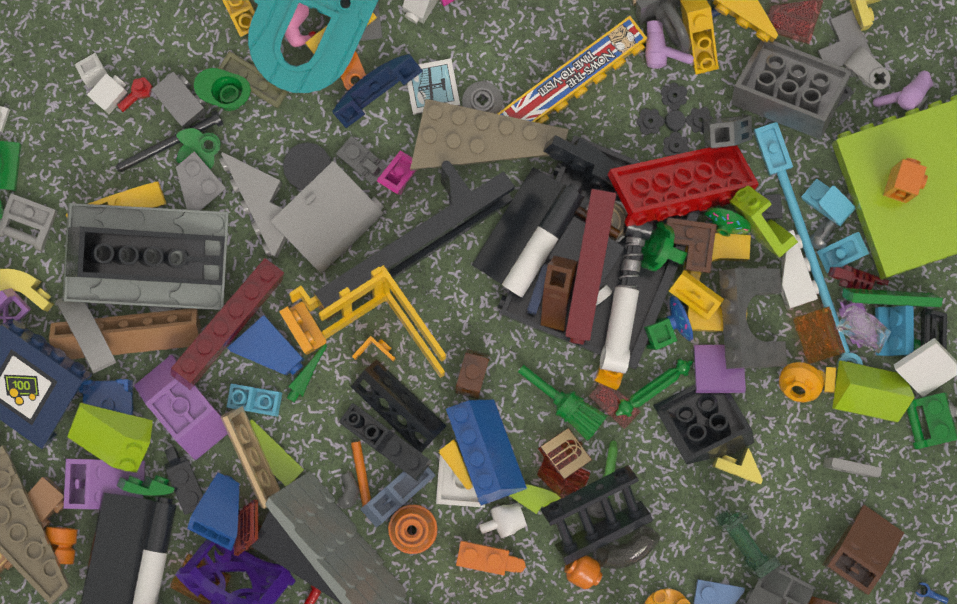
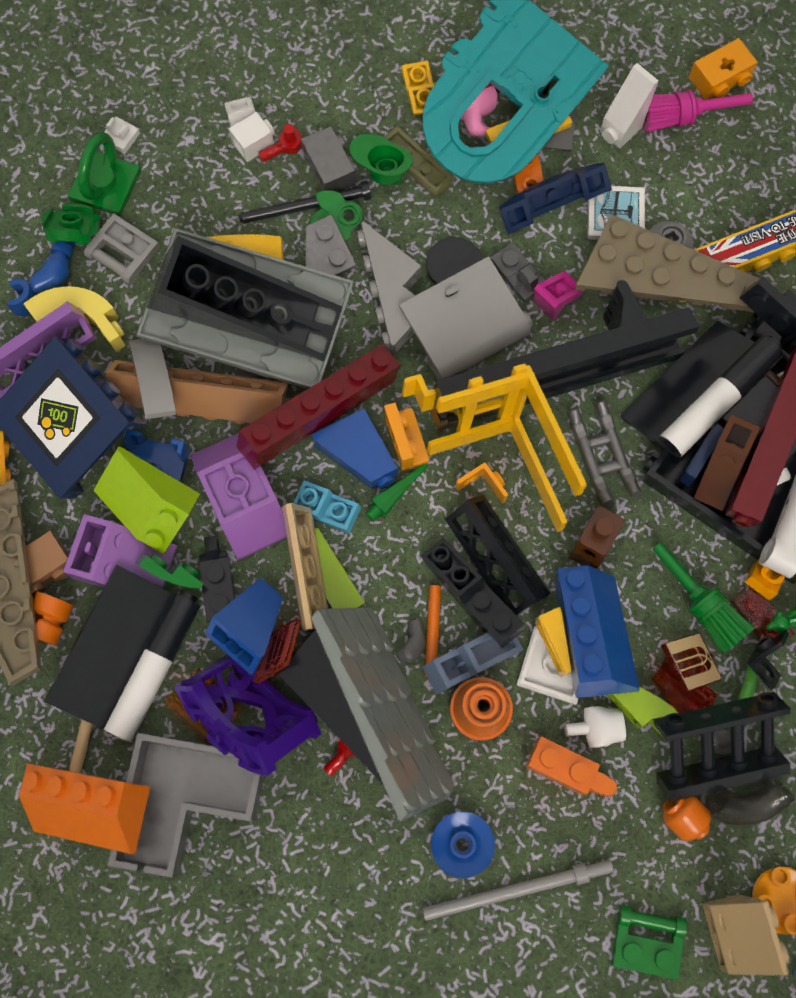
camera: 15 degrees right, 10 degrees down
(478, 307) = (609, 437): none -> flat silver piece
(617, 435) = (758, 657): none -> black bracket

